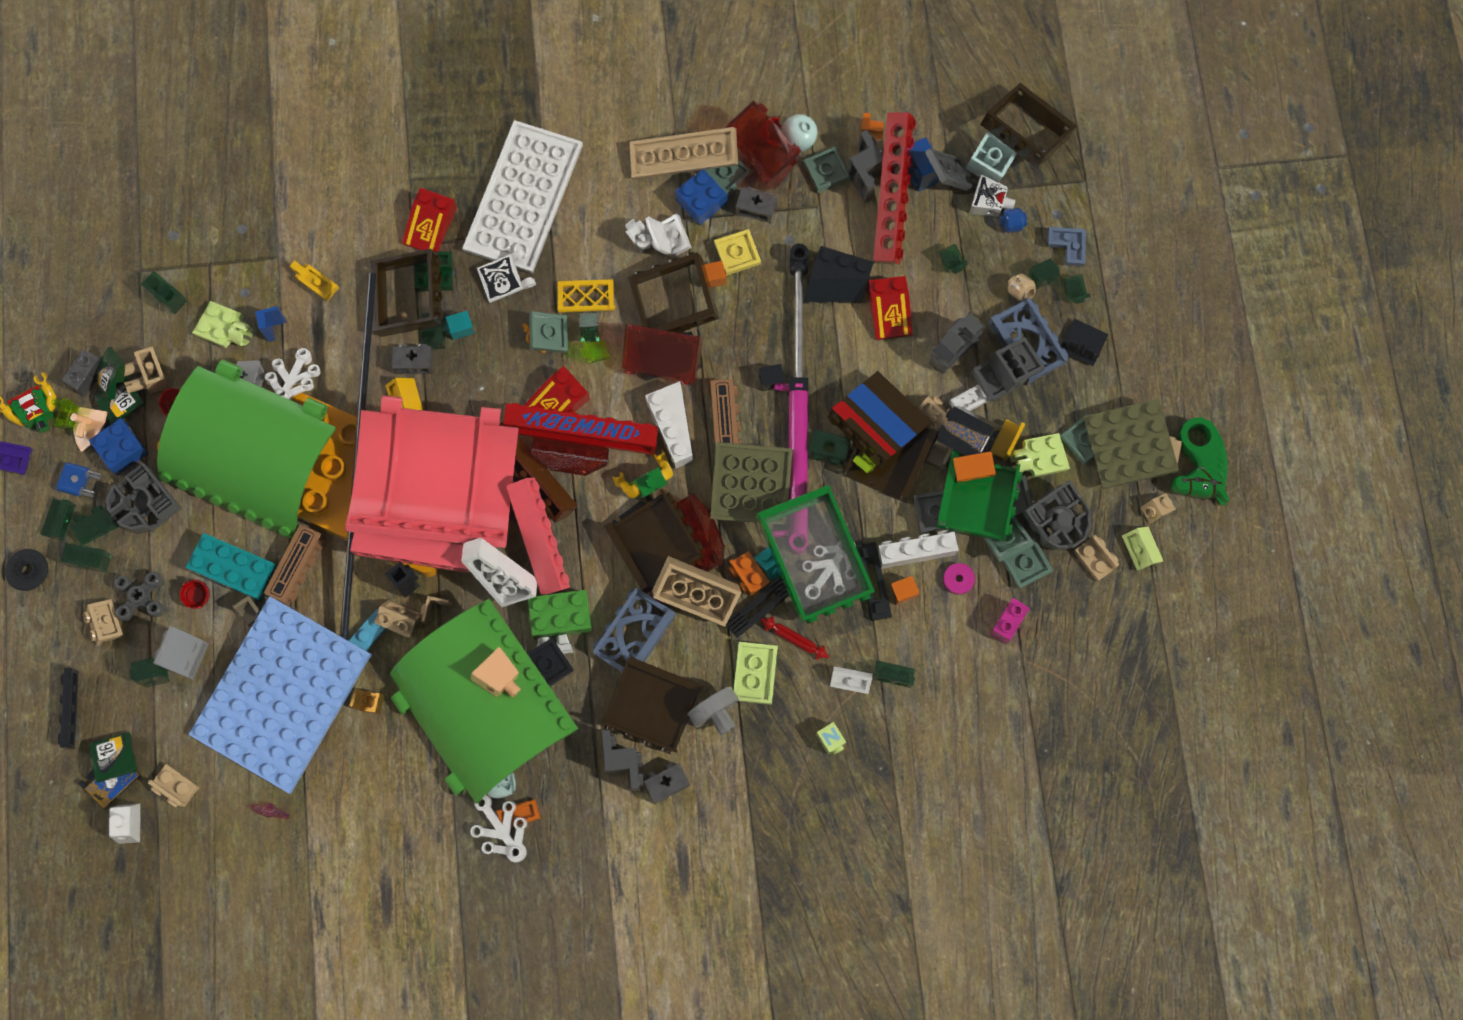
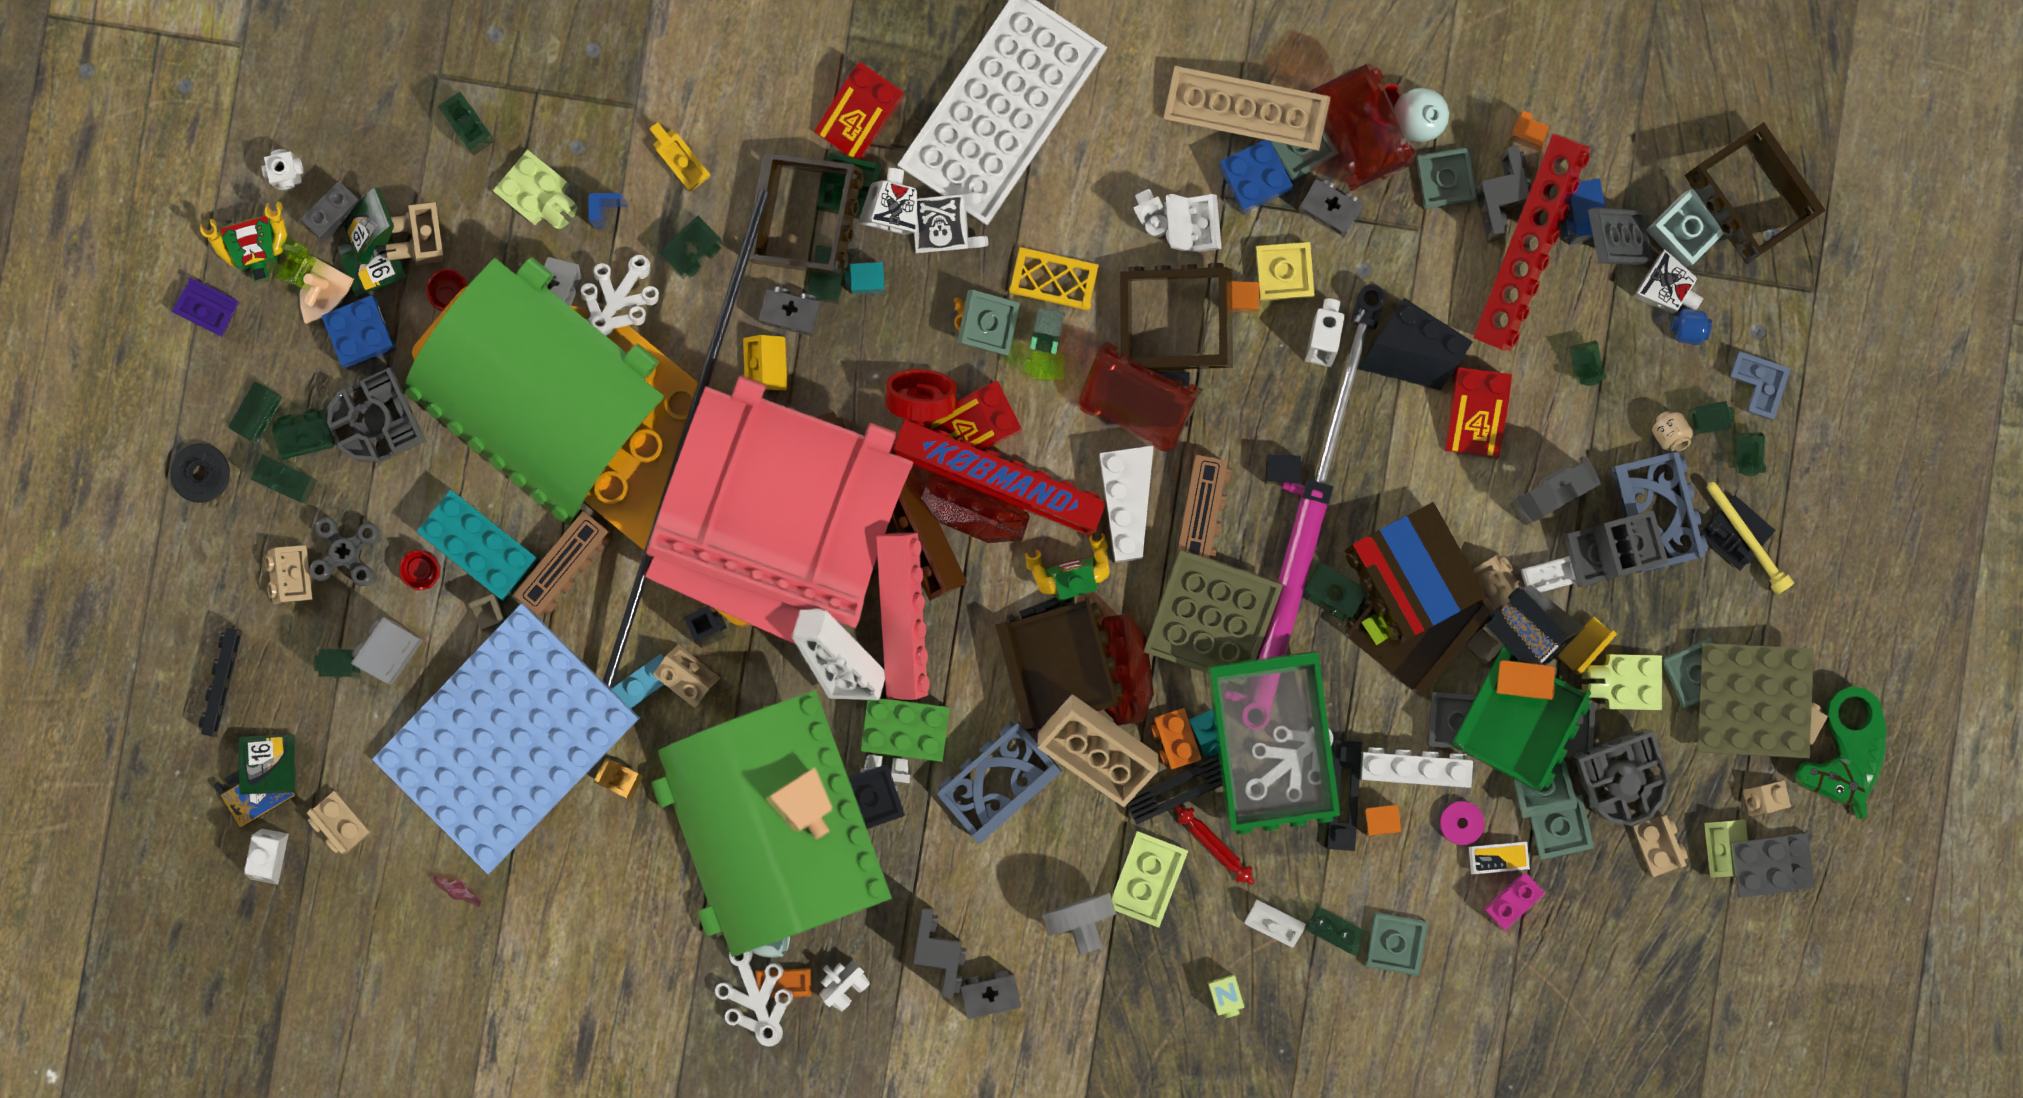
camera: 15 degrees right, 10 degrees up
(44, 353) = (289, 175): none -> white brick
(74, 480) = (289, 361): blue piece -> none
(337, 326) = (694, 233): none -> clear green brick
(426, 608) = (727, 671): tan bracket -> none
(464, 273) = (891, 205): none -> white torso
(514, 388) = (920, 395): none -> red piece
(556, 811) = (839, 981): none -> white hips
(651, 705) = (996, 887): dark brown panel -> none
(775, 284) = (1325, 334): none -> white torso
(938, 672) = (1396, 944): none -> sand green tile
(991, 595) = (1499, 857): none -> slope
(1121, 364) = (1779, 580): none -> light yellow piece
(1176, 549) = (1772, 865): none -> dark grey bracket

